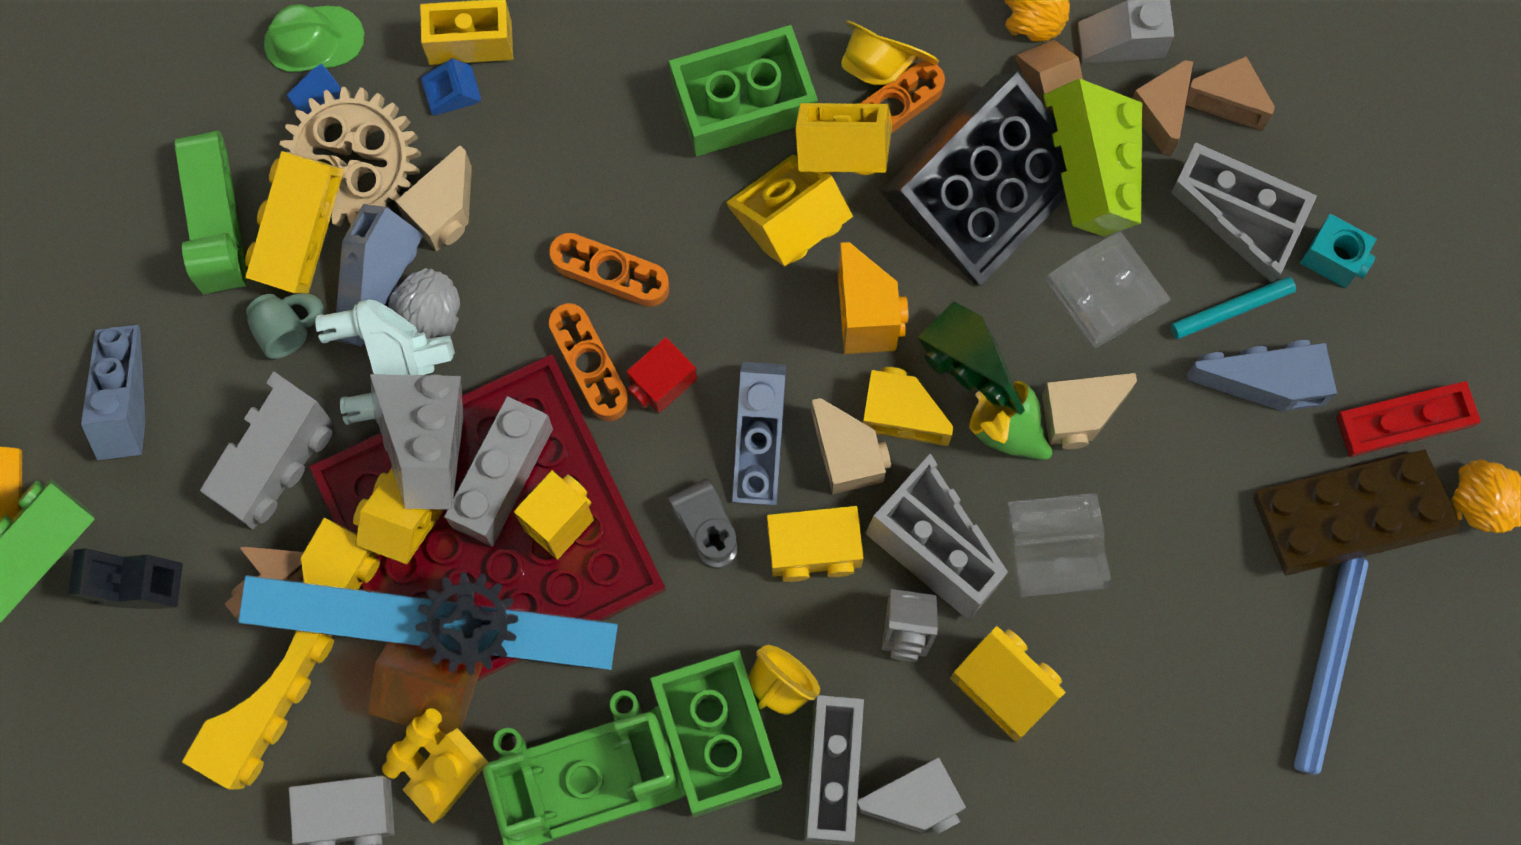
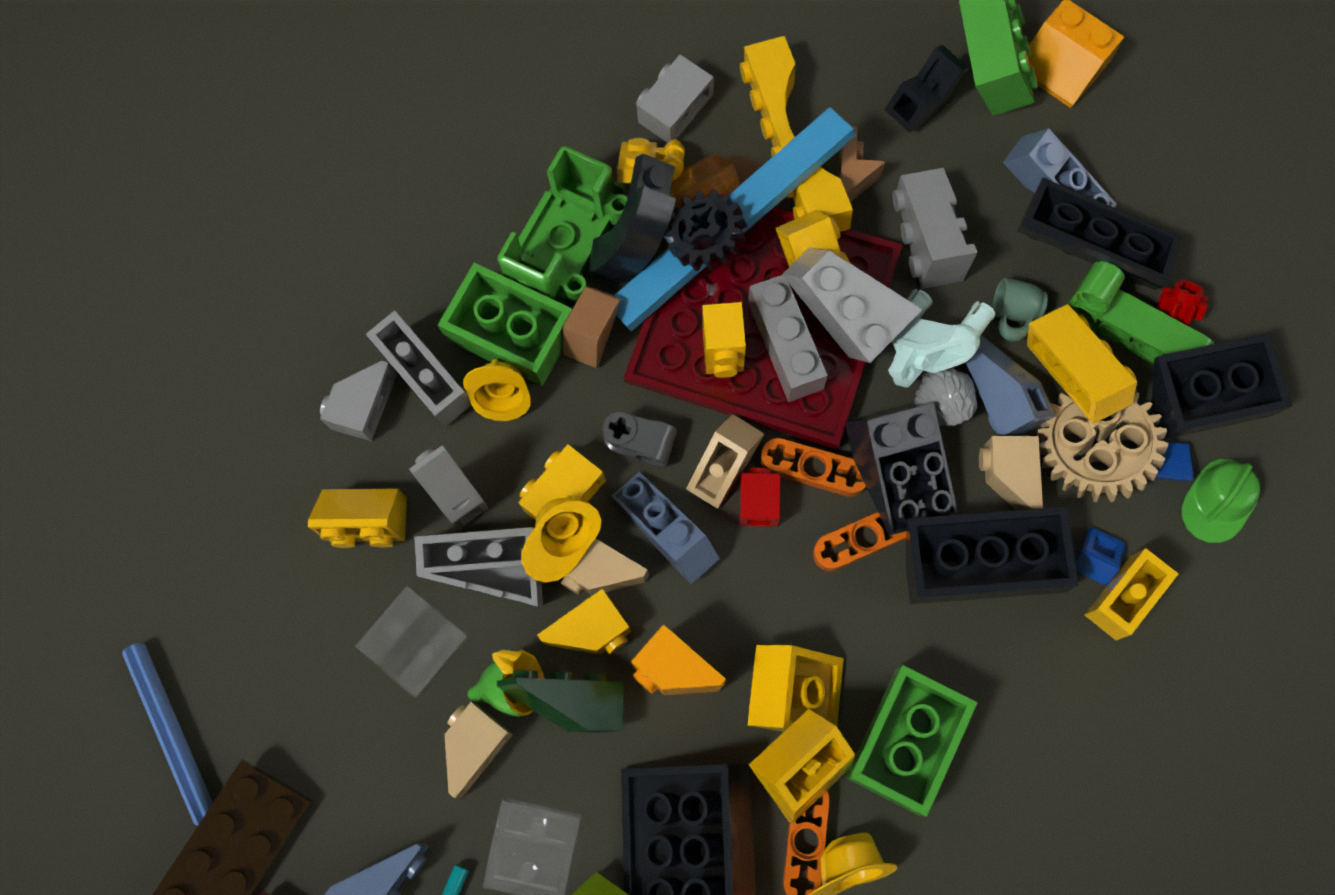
camera: 140 degrees right, 0 degrees up
(154, 303) = (1100, 233): none -> black slope
(155, 193) = (1183, 301): none -> red gear
(219, 101) = (1218, 386): none -> black slope
(513, 687) = (641, 226): none -> black arch
(519, 288) = (903, 464): none -> black slope
(539, 153) = (989, 555): none -> black slope
(642, 657) = (589, 326): none -> medium nougat slope
(654, 433) = (724, 460): none -> tan slope
(855, 485) = (559, 538): none -> yellow piece

